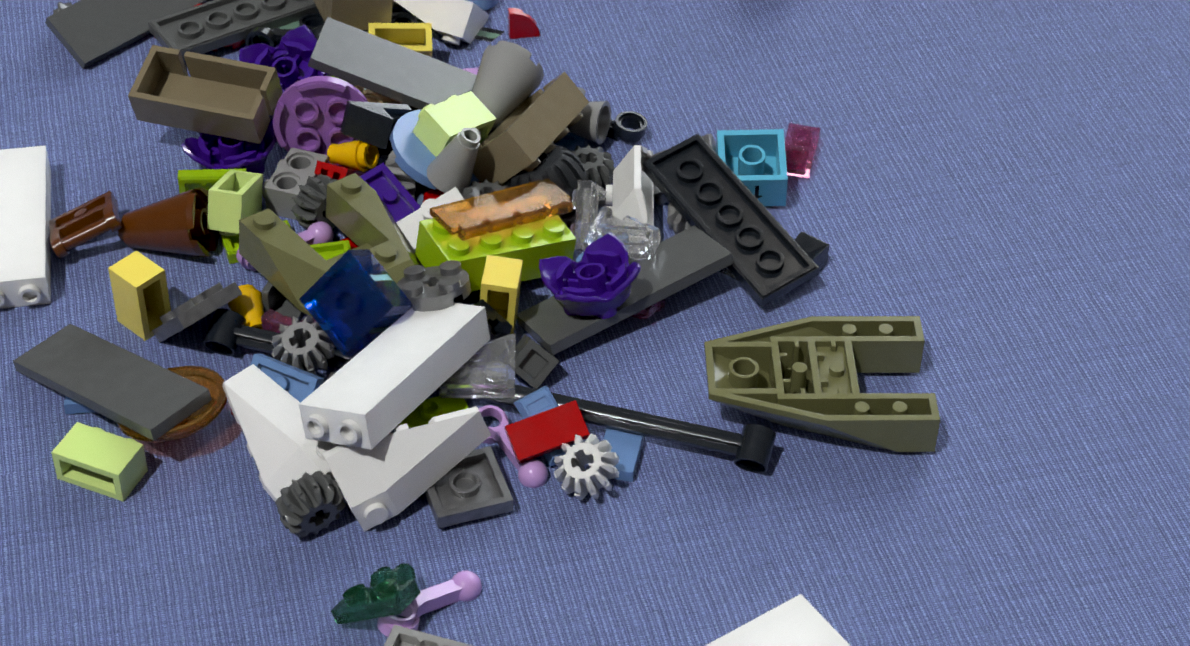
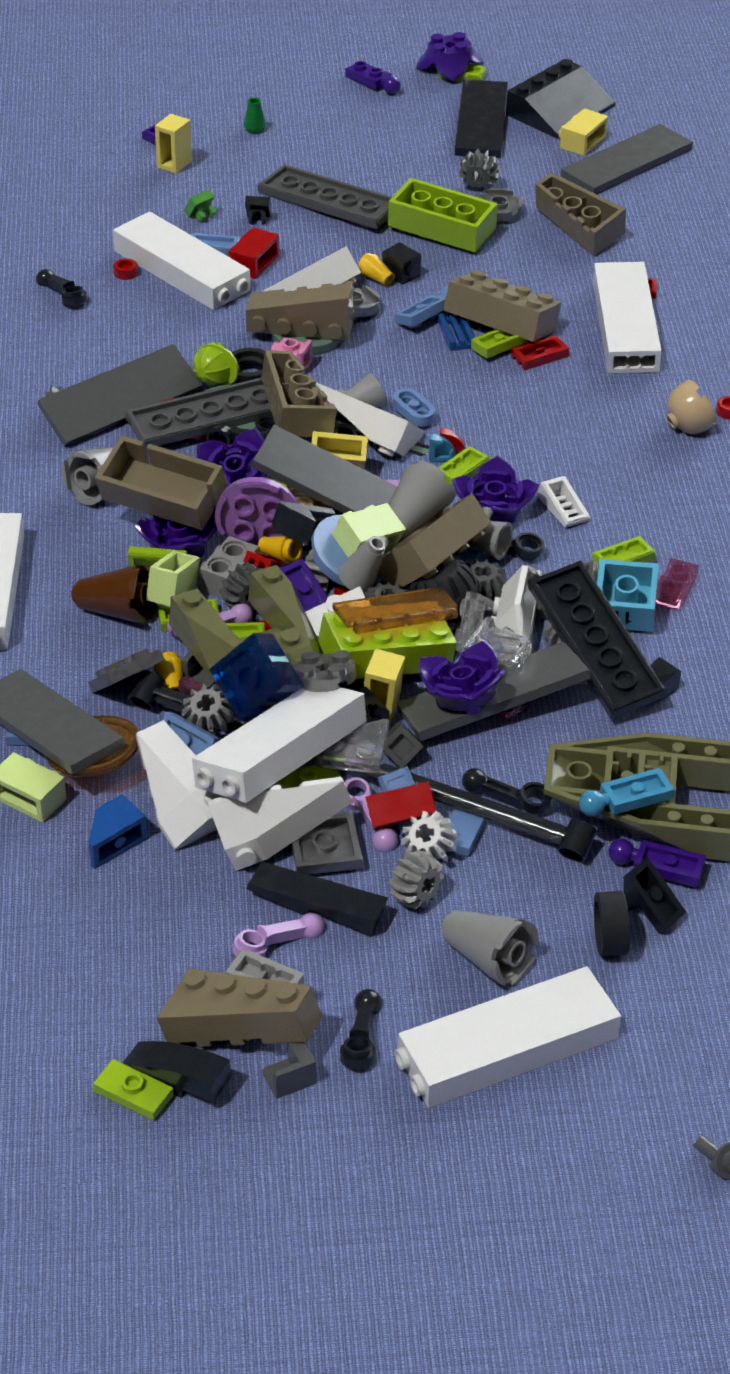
camera: 10 degrees right, 0 degrees up
(84, 223) = (44, 584): reddish brown plate -> none
(109, 92) = (80, 473): none -> light grey cone
(139, 294) = (80, 650): light yellow piece -> none
(214, 500) = (115, 829): none -> blue slope
(310, 503) = (192, 842): dark grey gear -> none
(387, 596) = (244, 923): hinge -> none
(452, 547) = (305, 893): none -> black slope
(512, 30) = (440, 449): none -> dark azure tile
(545, 44) = (464, 463): none -> lime plate
(581, 516) = (416, 879): none -> light grey gear
(586, 66) = (497, 489): none -> dark purple brick
(625, 394) = (476, 781): none -> black piece
(639, 66) = (561, 487): none -> white slope
(683, 579) = (492, 943): none -> light grey cone
(743, 118) = (630, 550): none -> lime plate
(807, 387) = (628, 793): none -> dark azure plate
(817, 540) = (611, 923): none -> black tyre
(849, 496) = (650, 892): none -> black slope
(852, 461) = (670, 862): none -> dark purple plate

